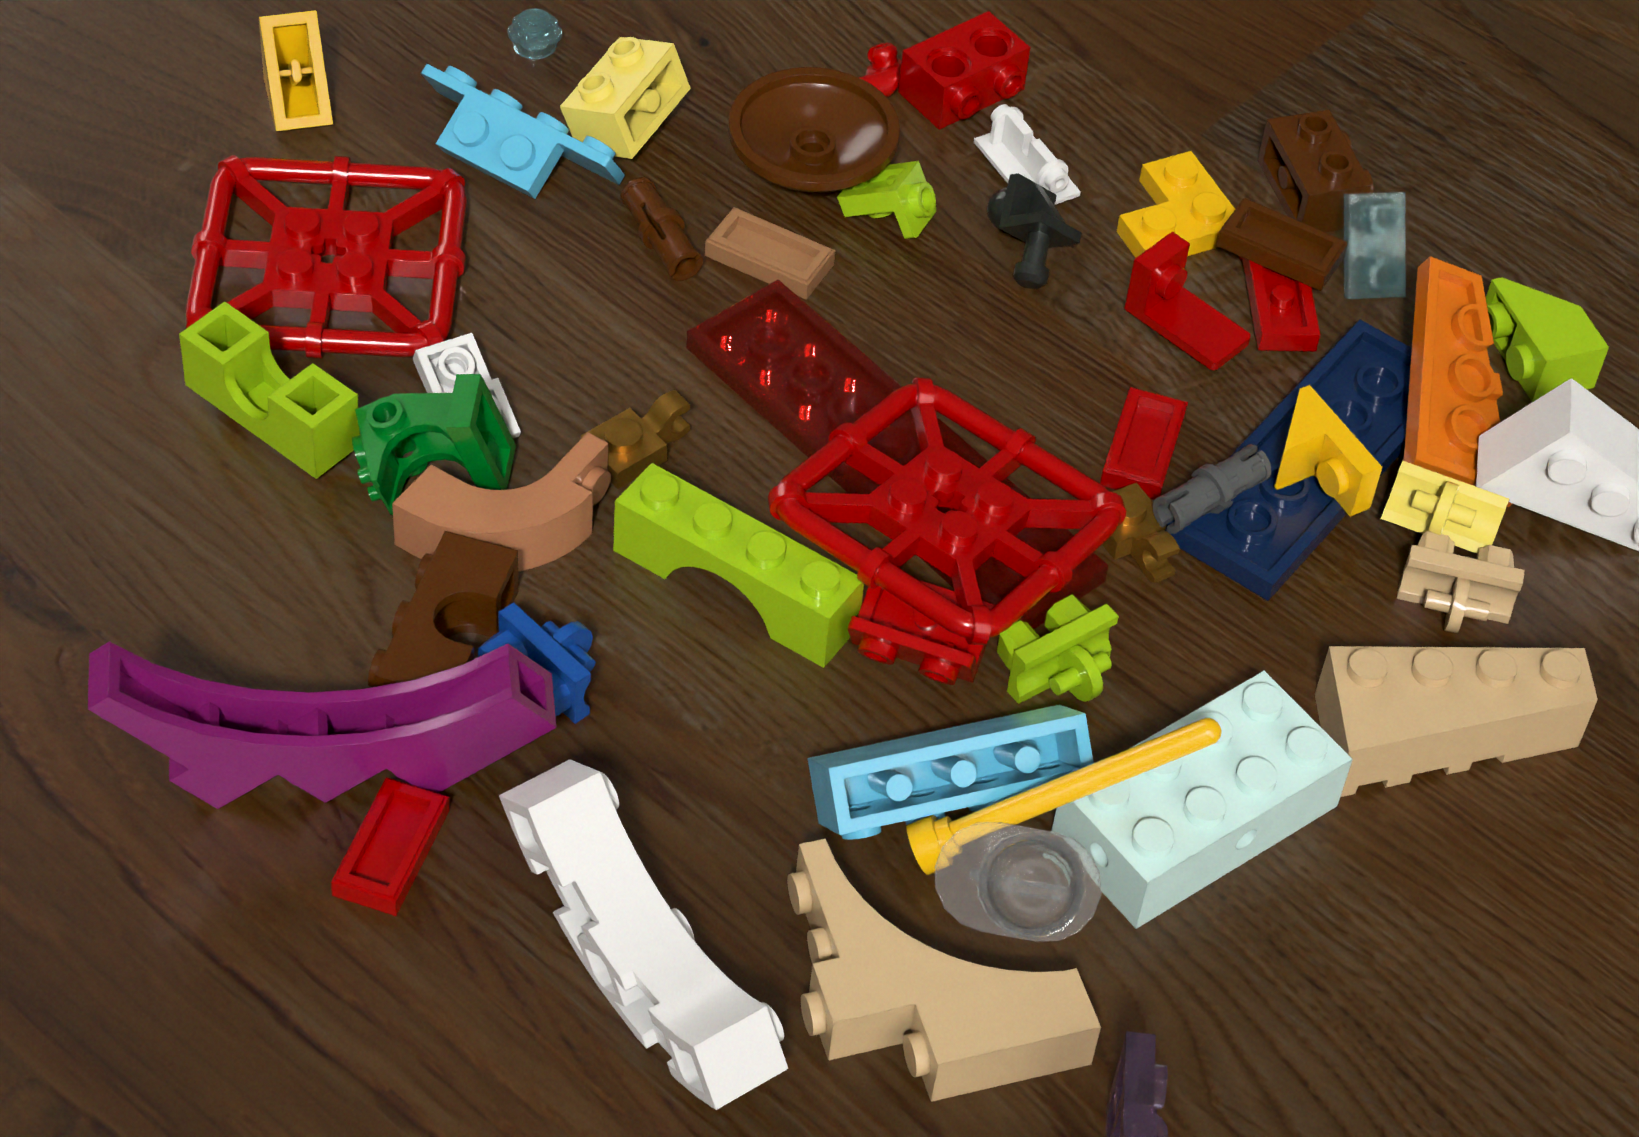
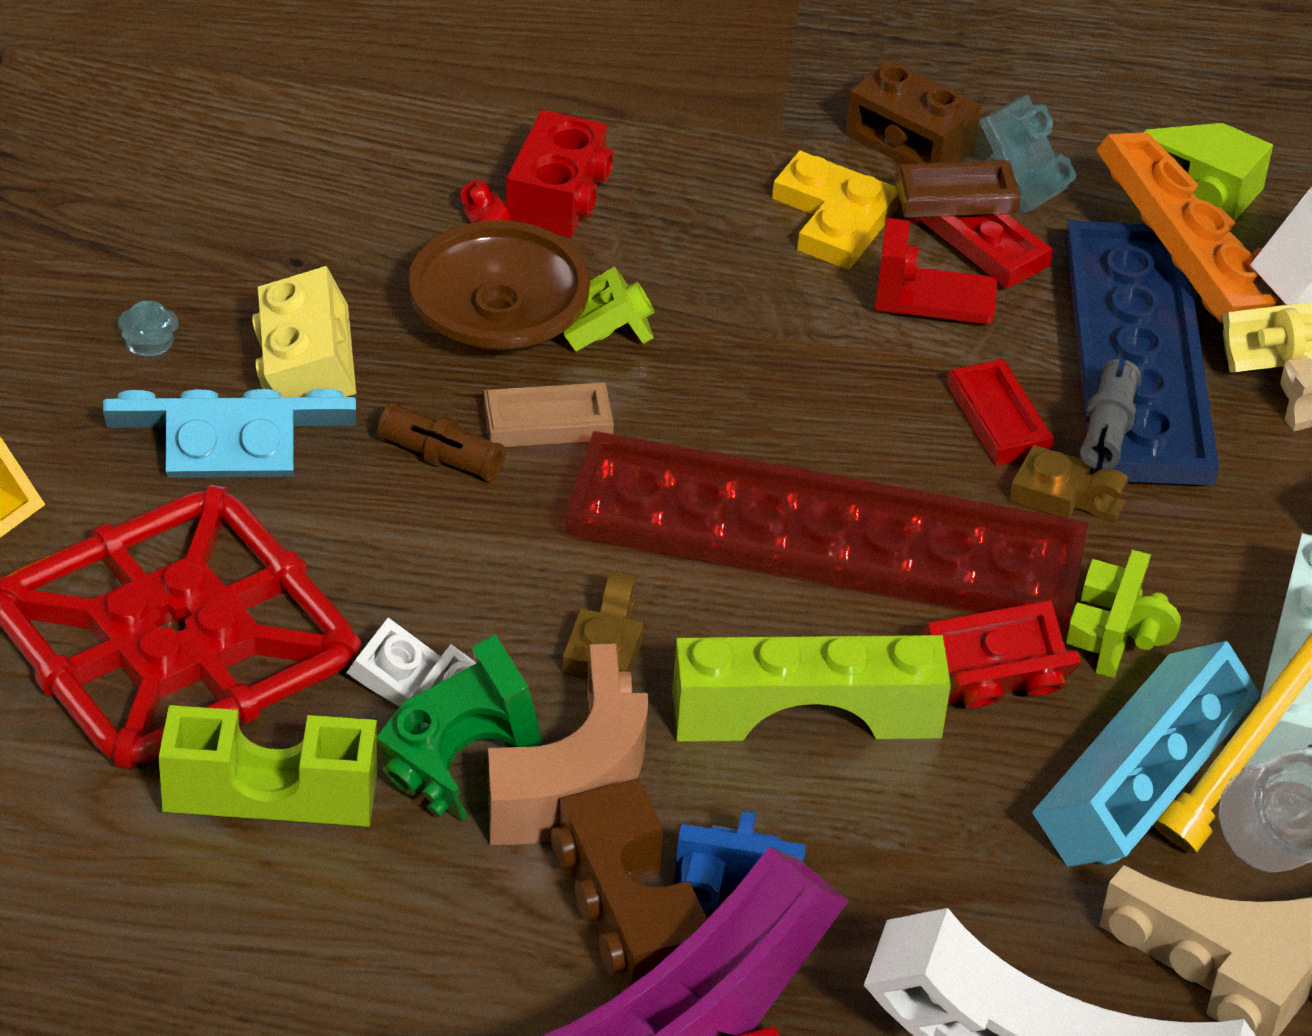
camera: 35 degrees left, 5 degrees down
(955, 541) = (908, 538): red plate -> none
(1015, 150) = (700, 232): white hinge -> none
(1031, 216) = (744, 272): pearl dark grey piece -> none
(1327, 449) = (1167, 333): yellow slope -> none

